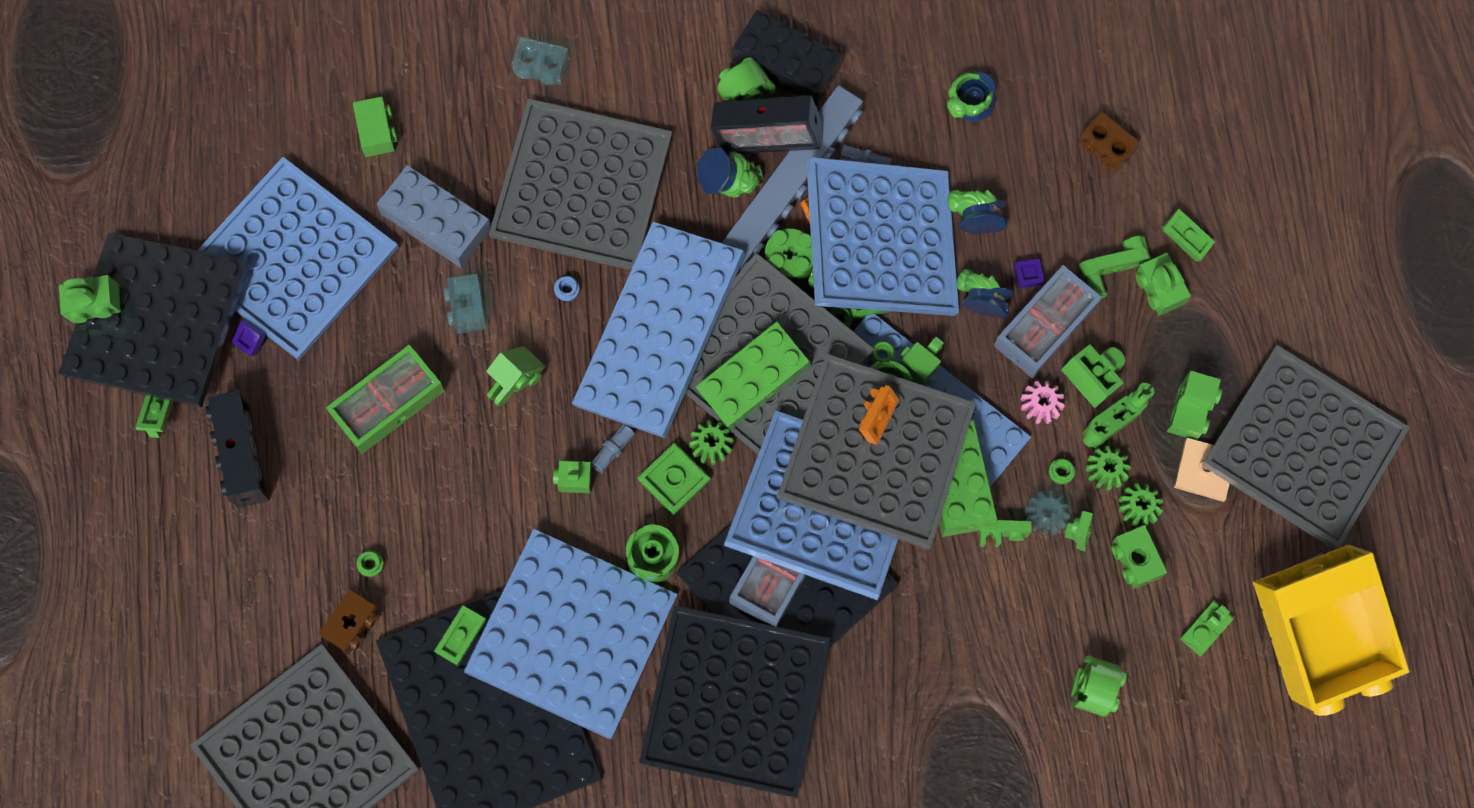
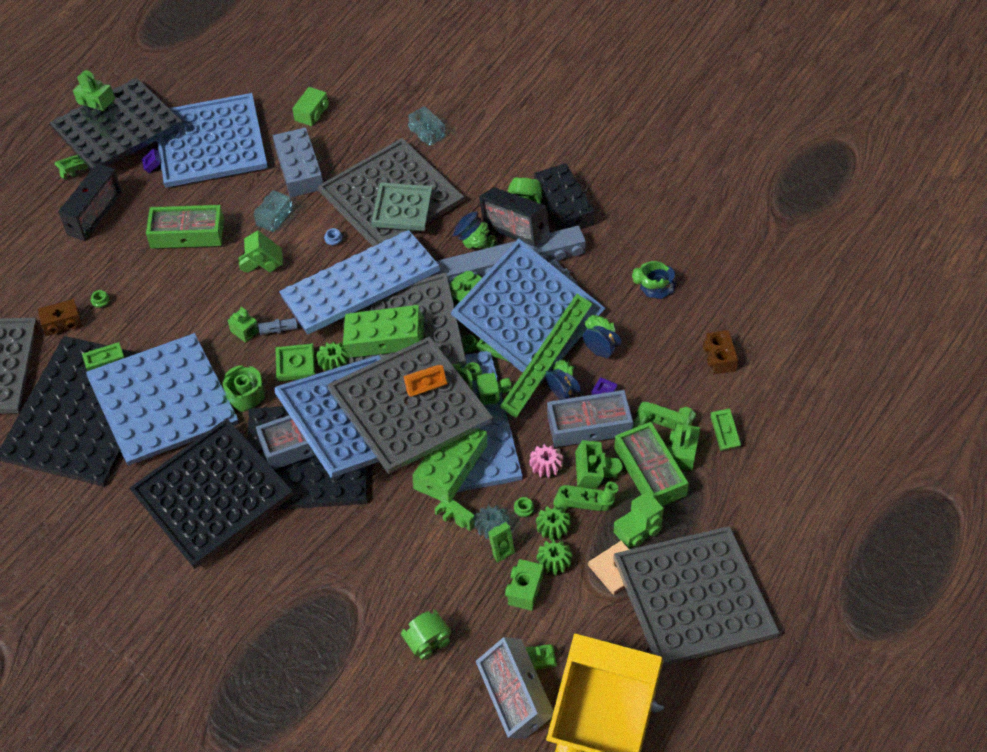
camera: 45 degrees right, 20 degrees down
(619, 195) = (402, 206): none -> sand green plate
(944, 278) = (545, 355): none -> bright green plate
(1152, 332) = (651, 464): none -> brick
(1230, 677) = (514, 688): none -> brick

